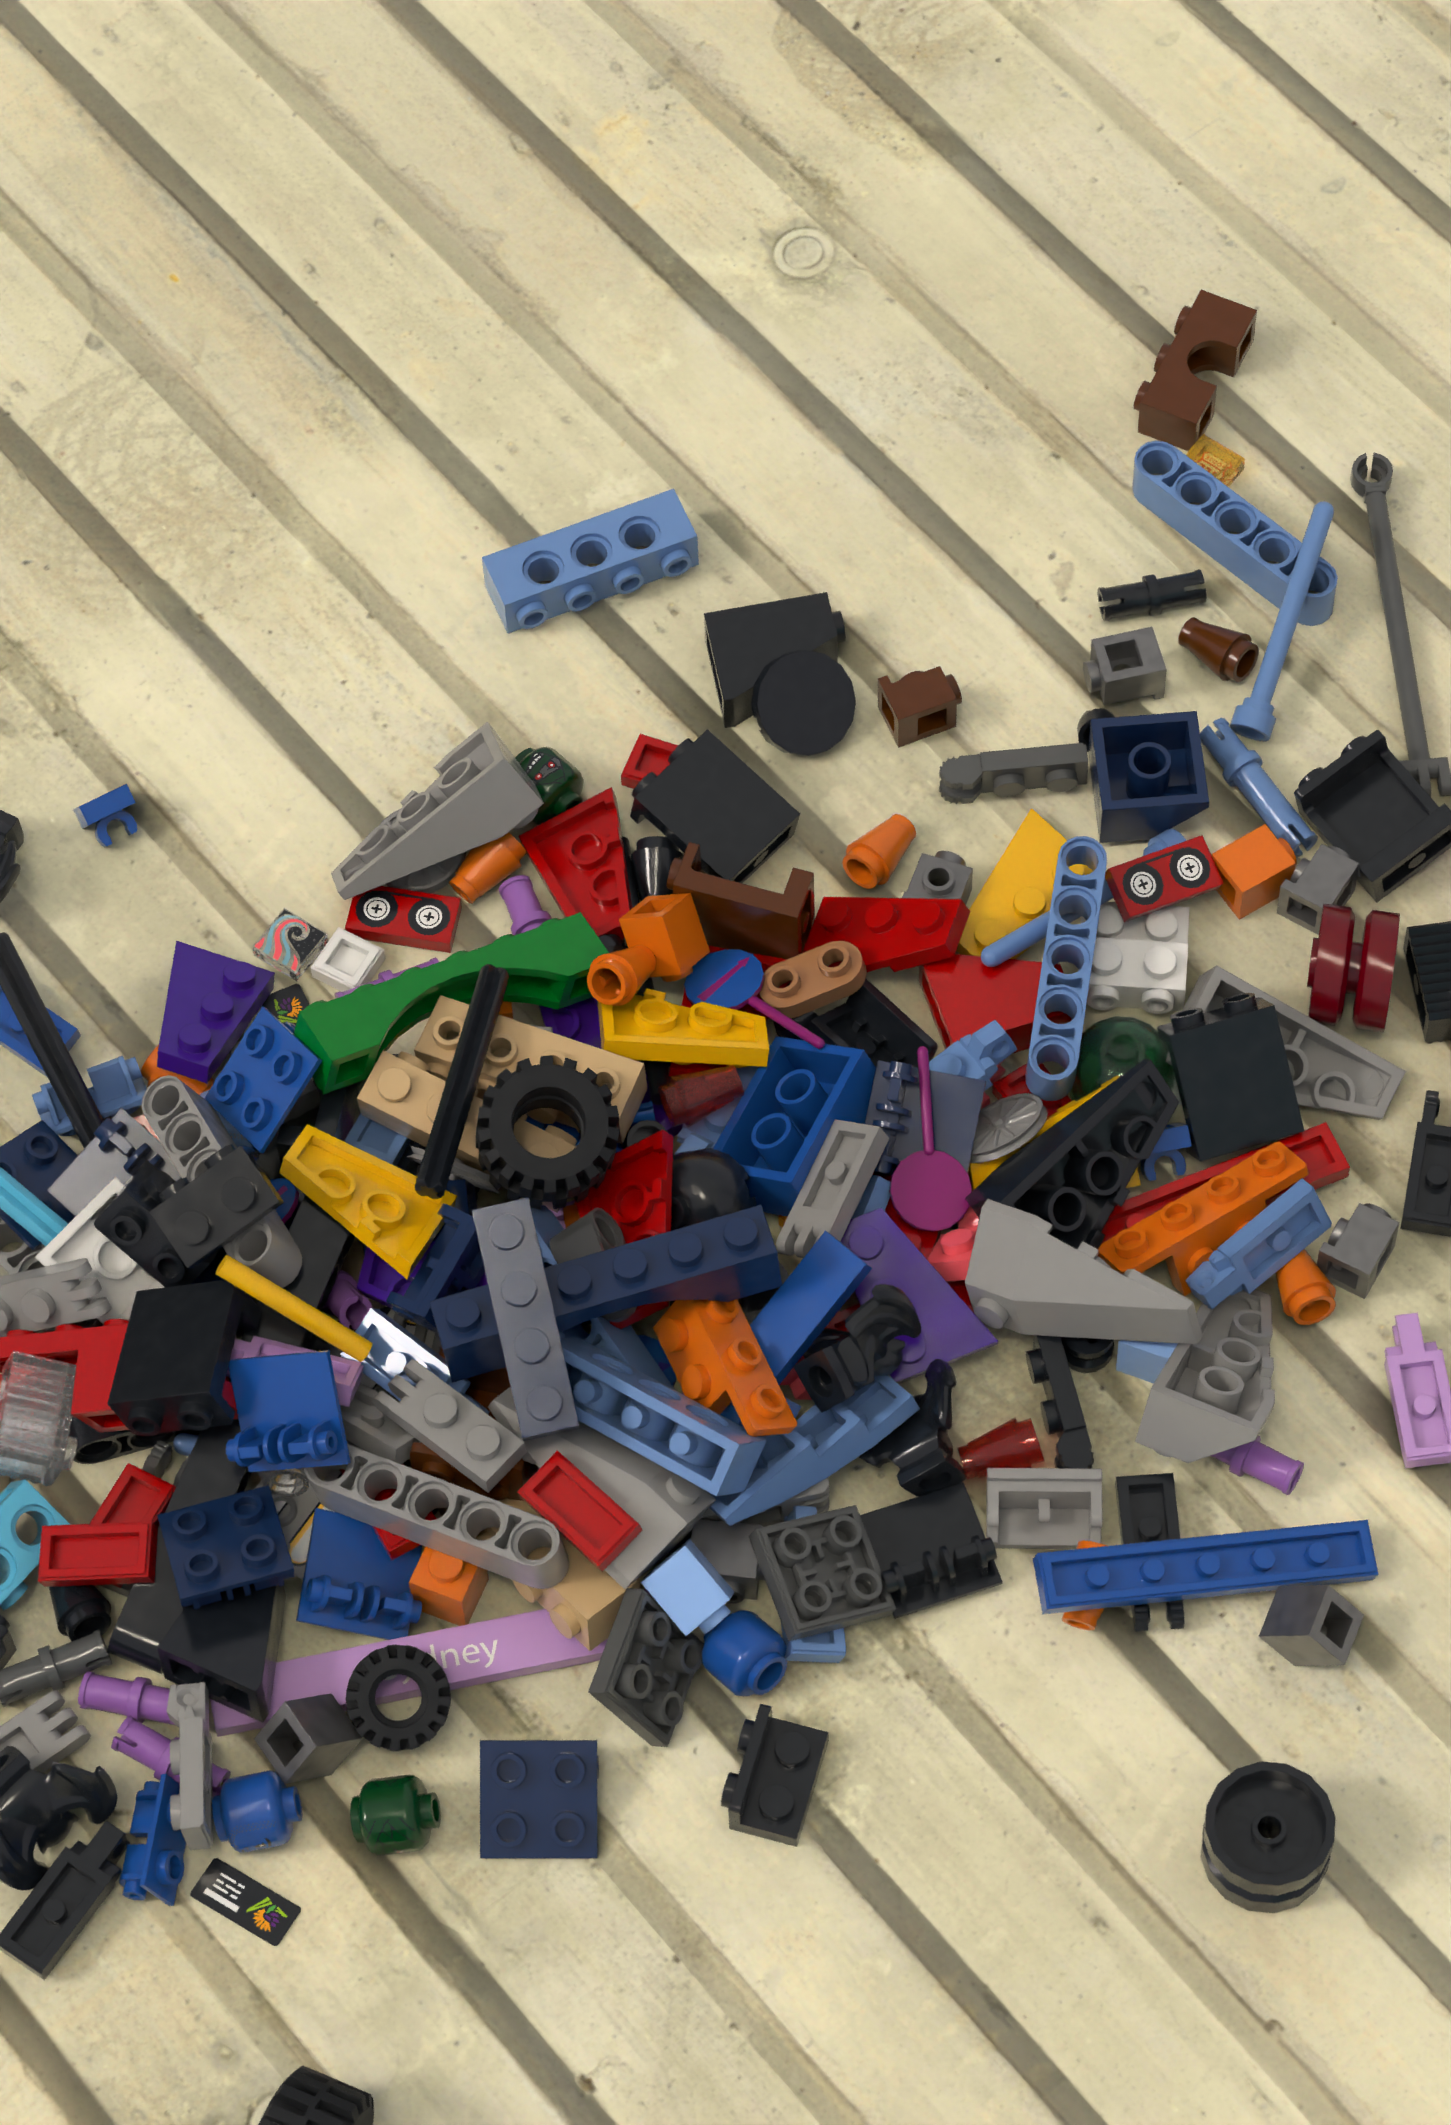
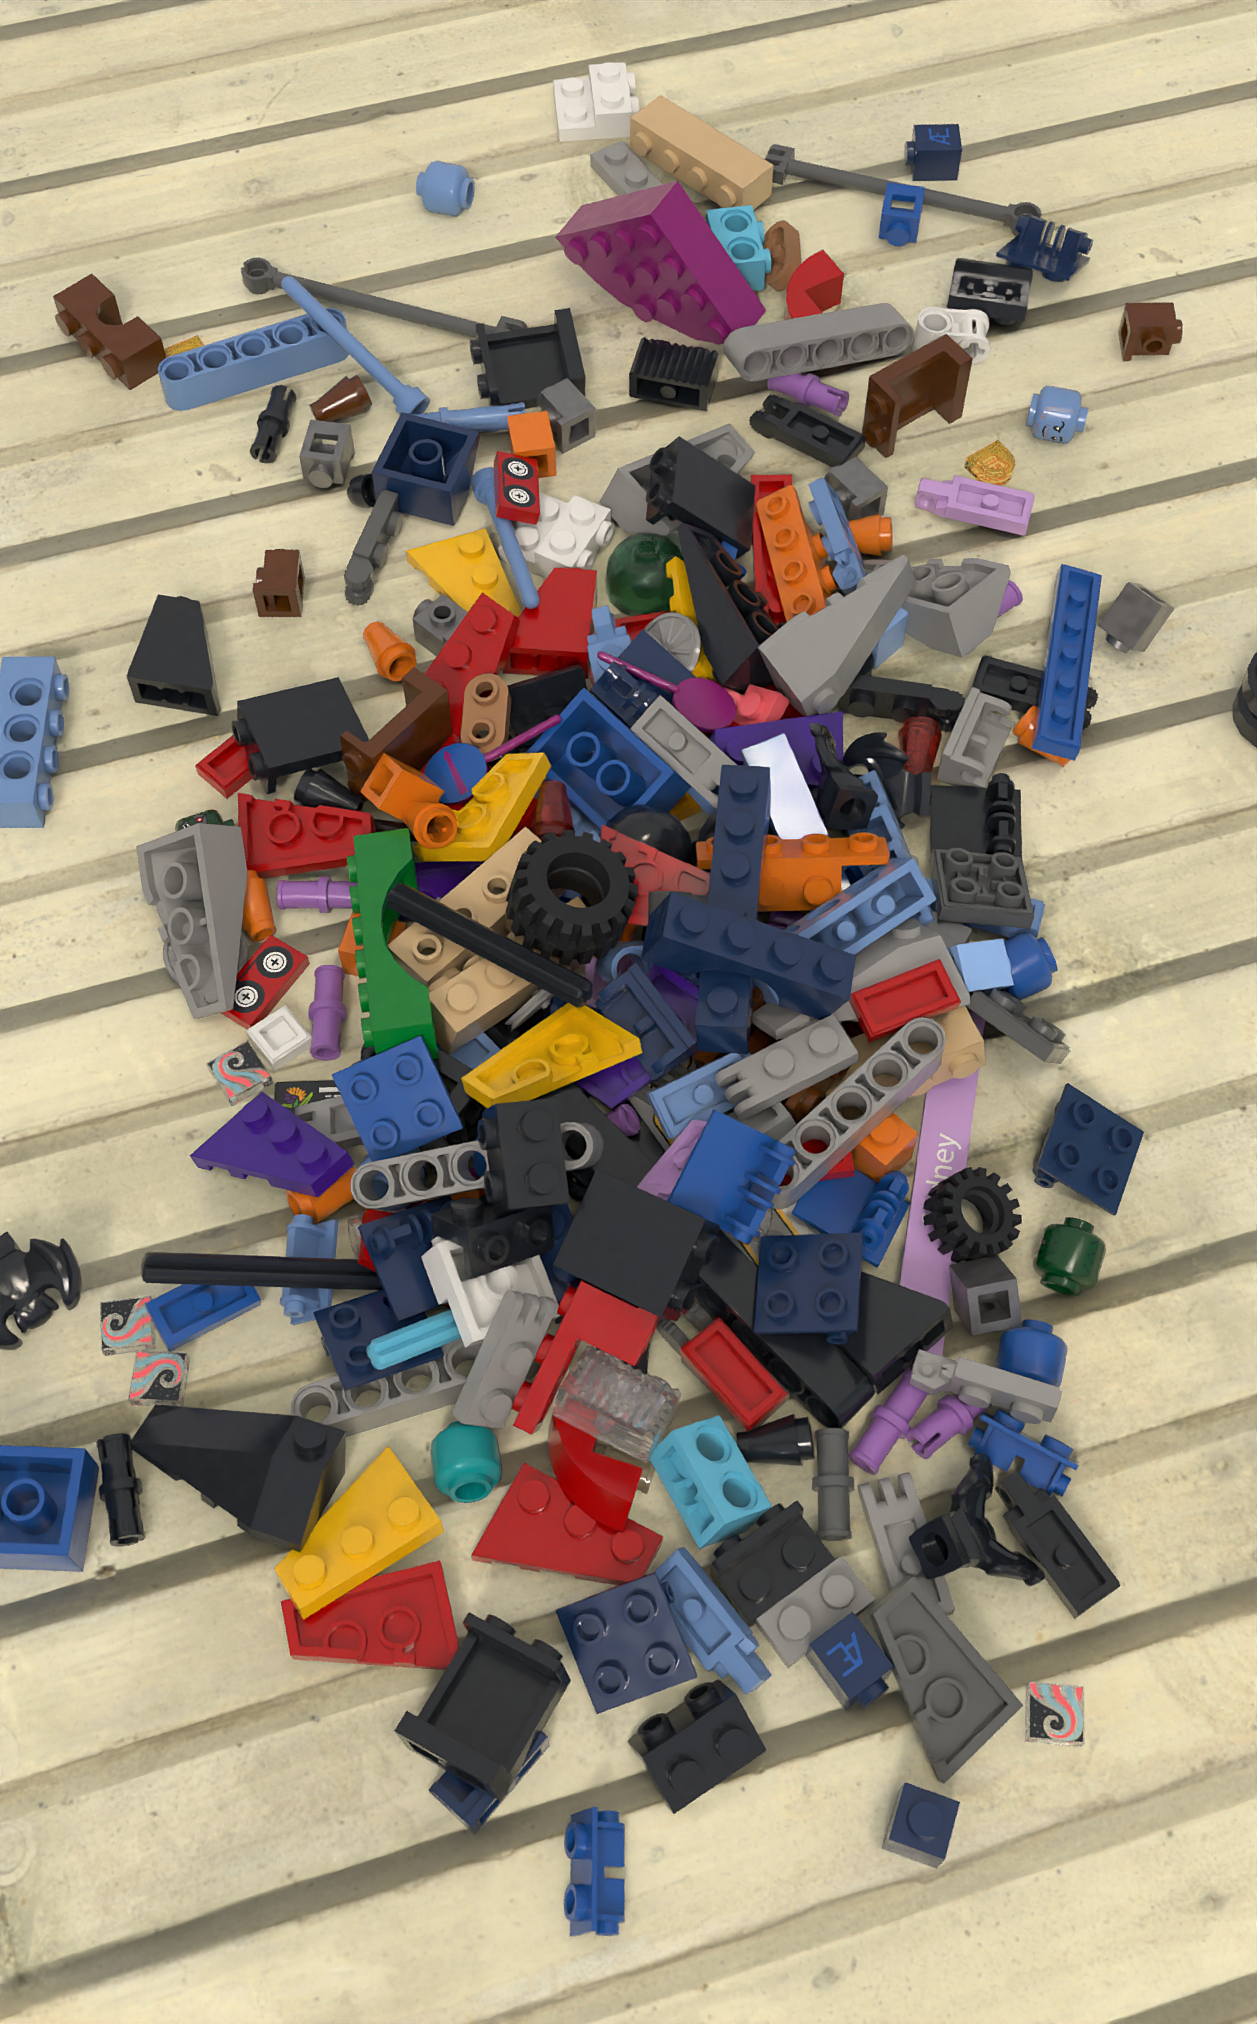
camera: 70 degrees left, 0 degrees up
(98, 1554) = (765, 1396): red tile -> none
(105, 809) = (31, 1167): blue tile -> none
(245, 1902) = (1094, 1404): black sticker -> none
(294, 1308) = (635, 1140): yellow bar -> none
(775, 1777) = (1124, 986): black bracket -> none
(803, 702) = (239, 646): black tile -> none
(1066, 991) = (571, 554): medium blue beam -> none
(1353, 967) = (648, 405): dark red wheel -> none

